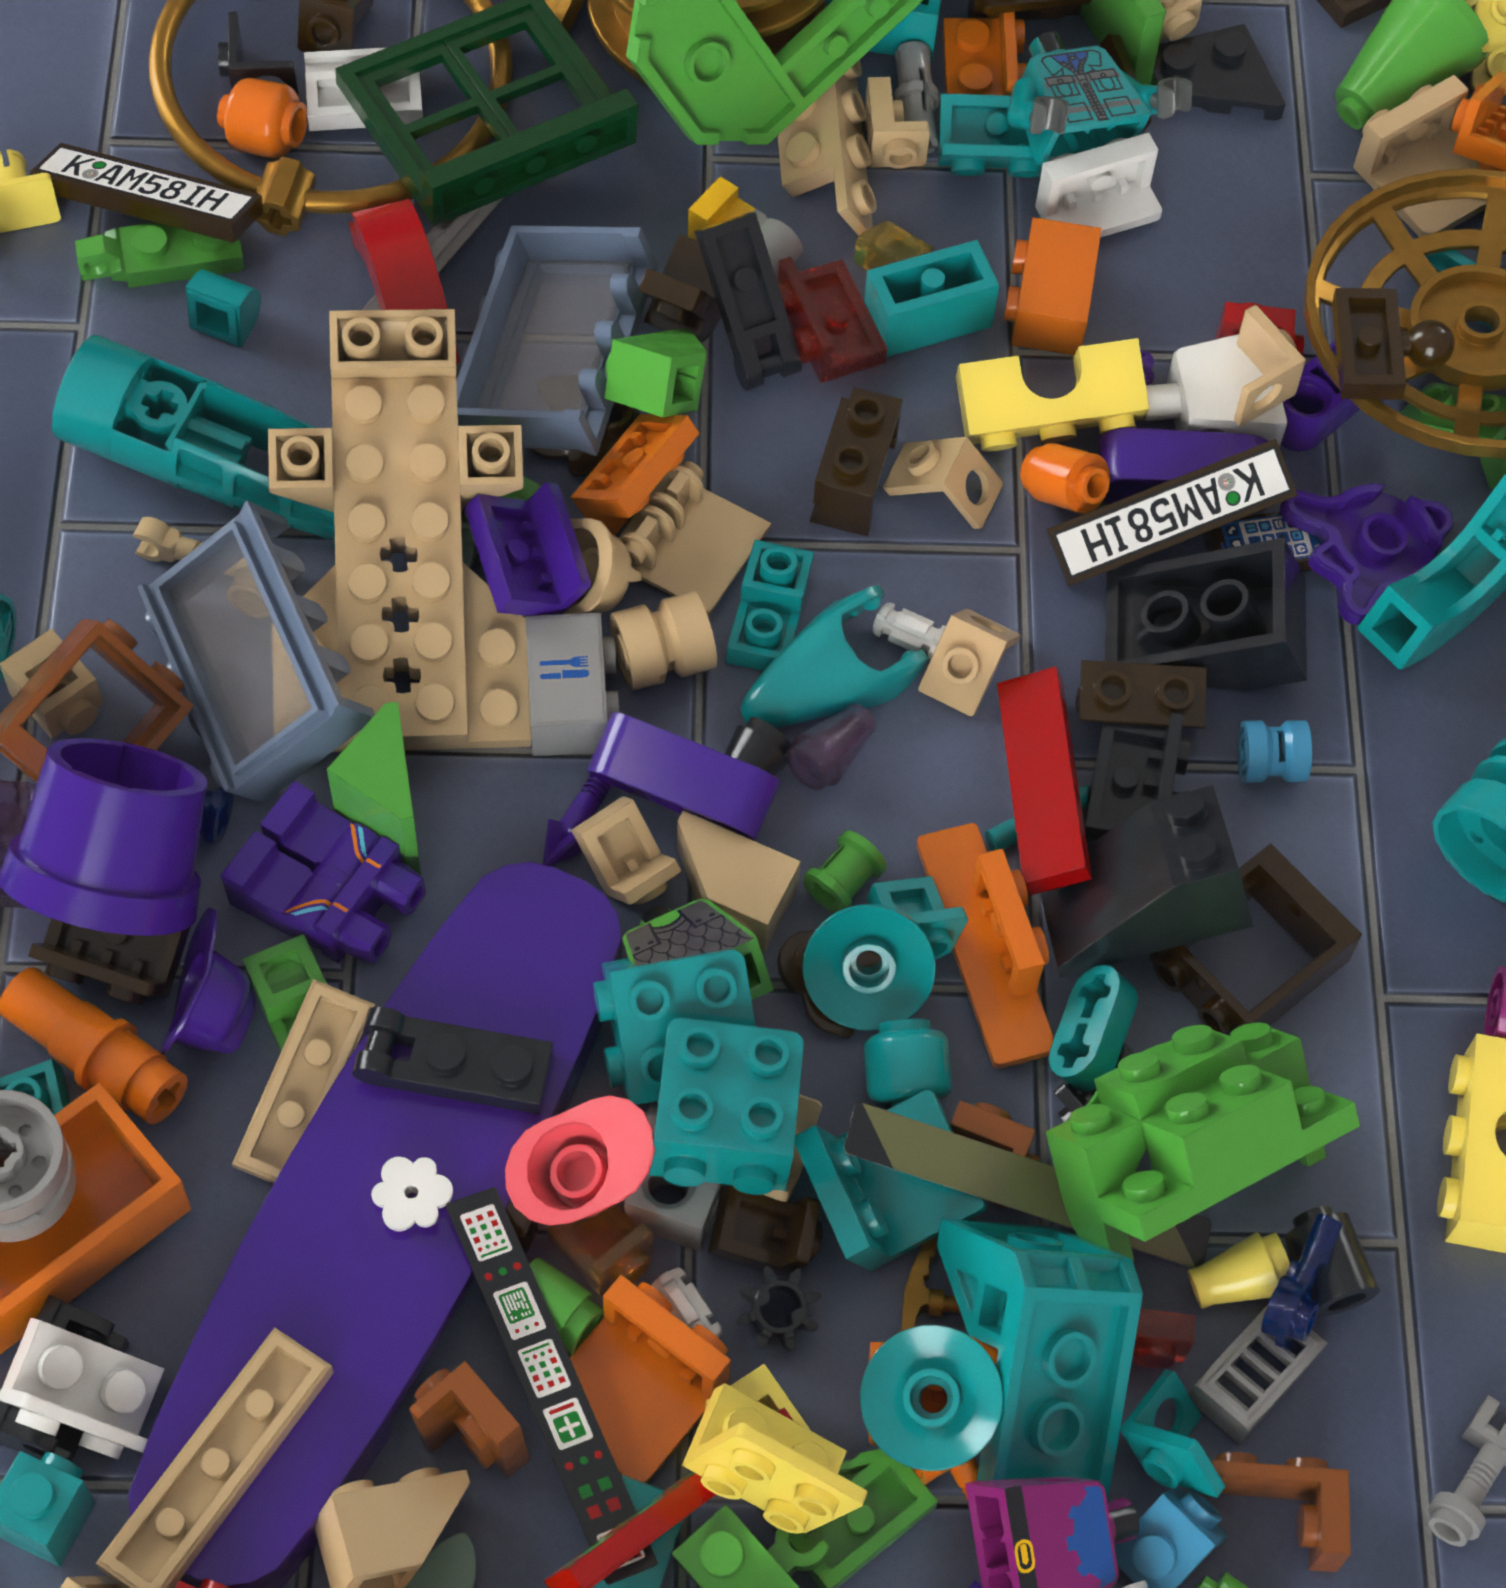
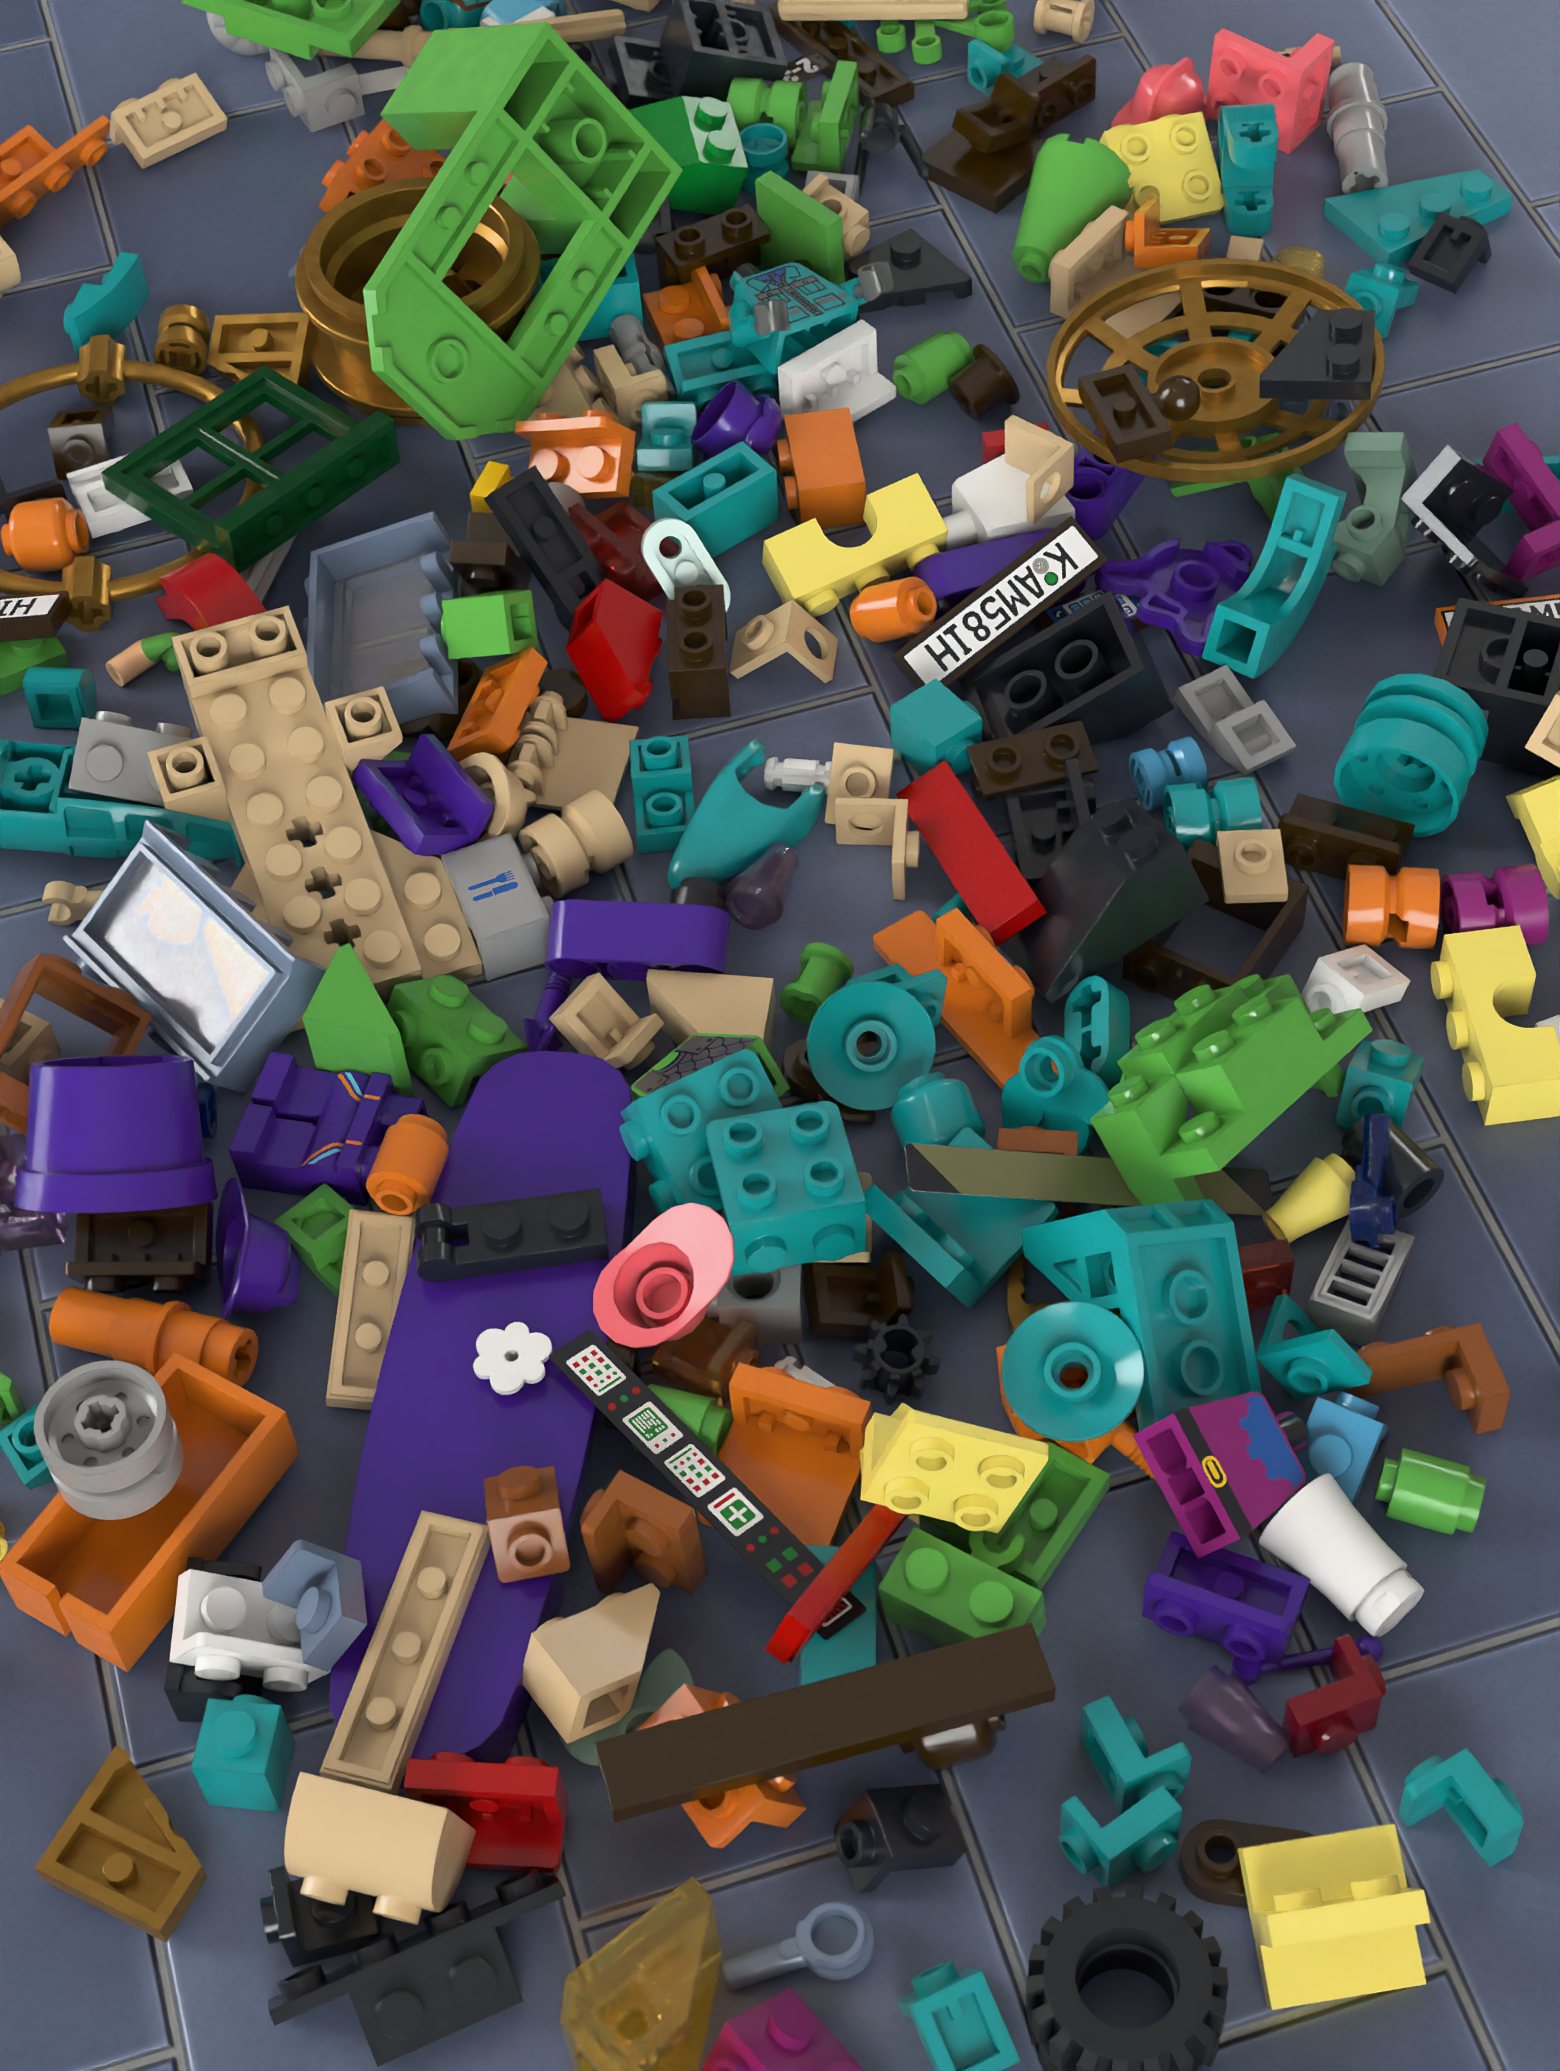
camera: 10 degrees left, 10 degrees down
(160, 1390) = (327, 1599): none -> sand blue bracket
(248, 402) = (114, 758): none -> light grey bracket
(320, 282) = (142, 656): none -> arm
(366, 1373) = (526, 1523): none -> dark orange bracket
(381, 953) = (408, 1164): none -> orange brick
(473, 809) = (449, 1034): none -> bright green bracket
(714, 457) = (569, 687): none -> dark brown tile
(774, 430) = (614, 647): none -> red slope
(815, 202) = (582, 452): none -> orange bracket
(874, 362) = (688, 567): none -> light aqua plate
(911, 201) = (667, 436): none -> teal bracket
(980, 723) = (891, 833): none -> tan bracket
(982, 210) = (737, 417): none -> dark purple piece
(1031, 1077) = (1053, 1101): none -> teal plate
(1061, 626) = (934, 728): none -> teal brick
(1207, 199) = (928, 366): none -> bright green brick
(1249, 237) = (983, 384): none -> dark brown piece
(1298, 821) = (1200, 813): none -> teal wheel
(1313, 895) = (1252, 866): none -> tan bracket
(1355, 1170) = (1379, 1082): none -> teal bracket
(1361, 711) = (1231, 723): none -> light grey slope
(1366, 1052) = (1353, 981): none -> white bracket
(1422, 884) = (1330, 836): none -> dark brown bracket
(1439, 978) = (1391, 906): none -> orange wheel

